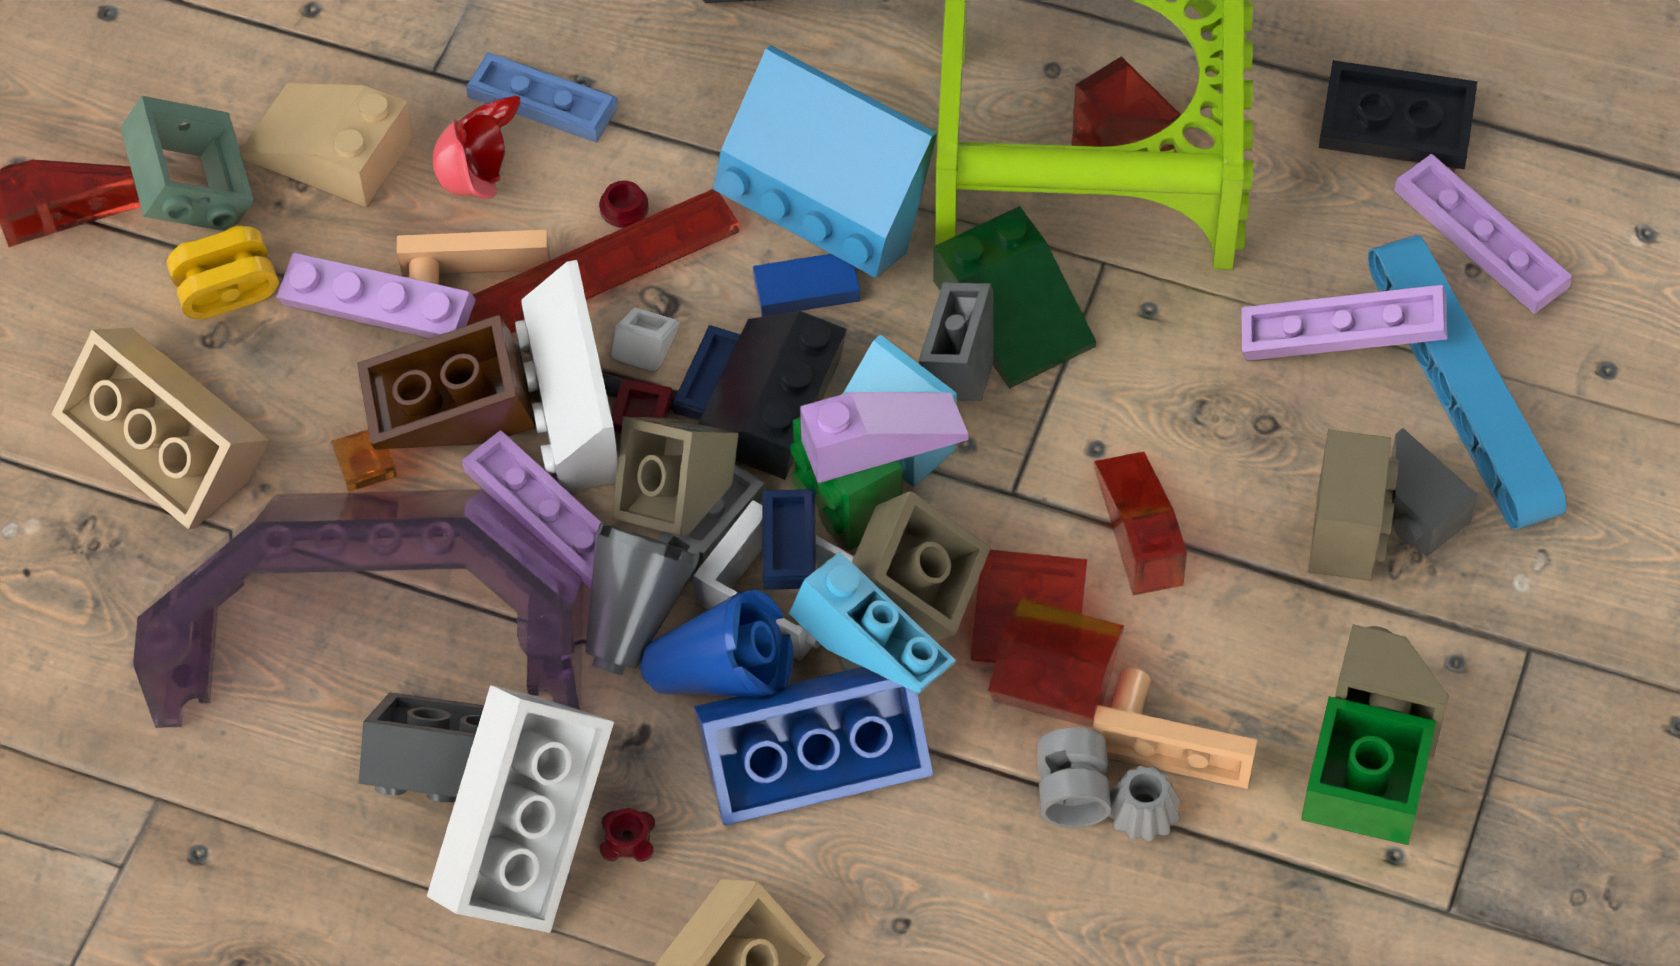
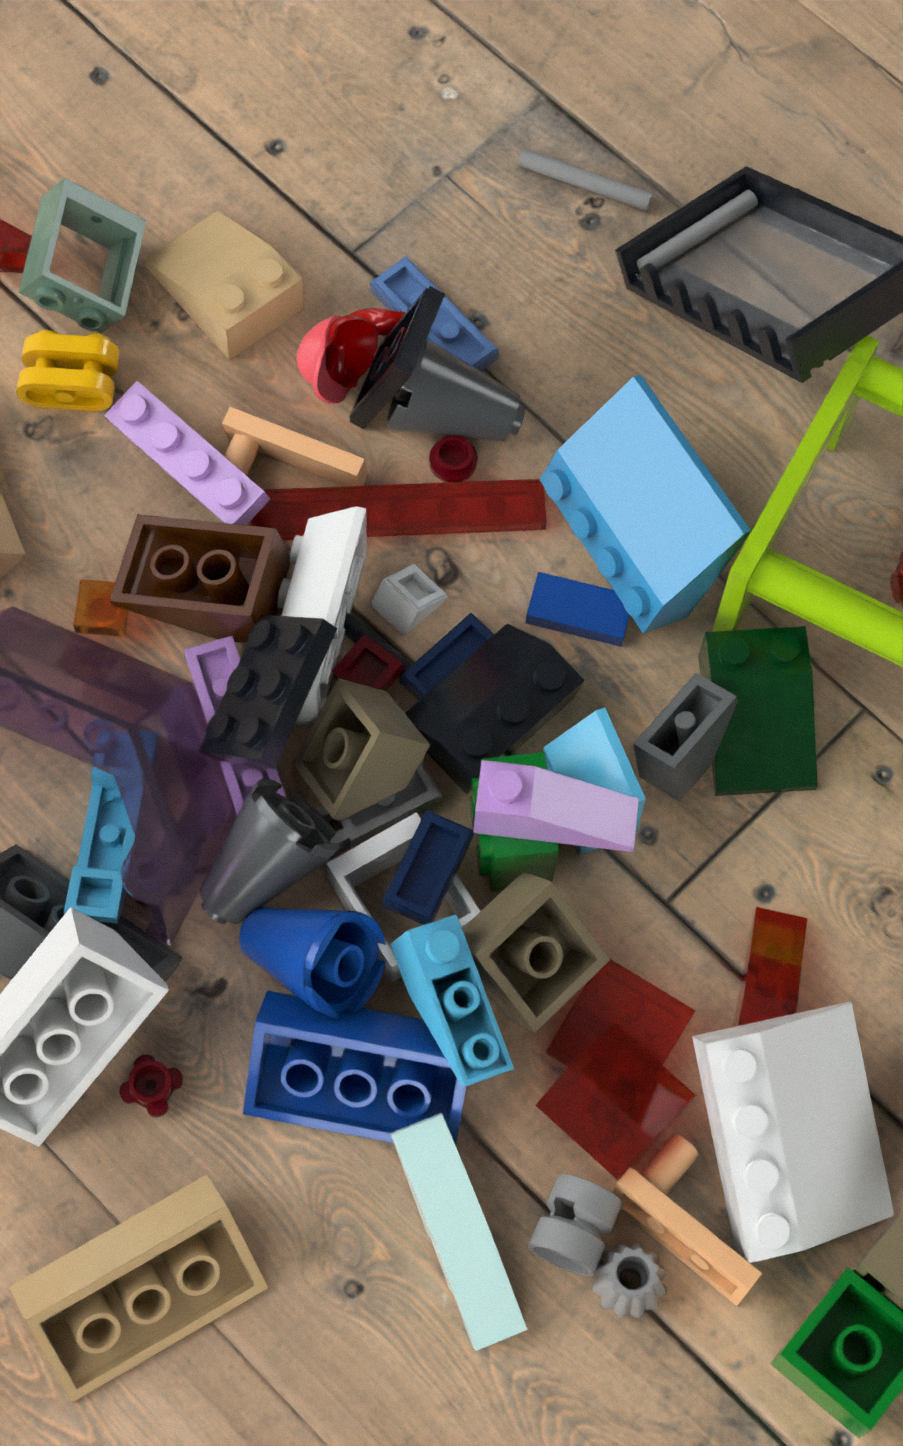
camera: 20 degrees right, 10 degrees up
(470, 635) = (106, 841): none -> medium azure slope
(533, 130) = (396, 357): none -> black tile
(565, 449) = (267, 690): none -> black plate
(594, 149) = (454, 399): none -> dark grey cone
(973, 828) = (458, 1231): none -> light aqua slope
(1221, 614) = (793, 1131): none -> white slope

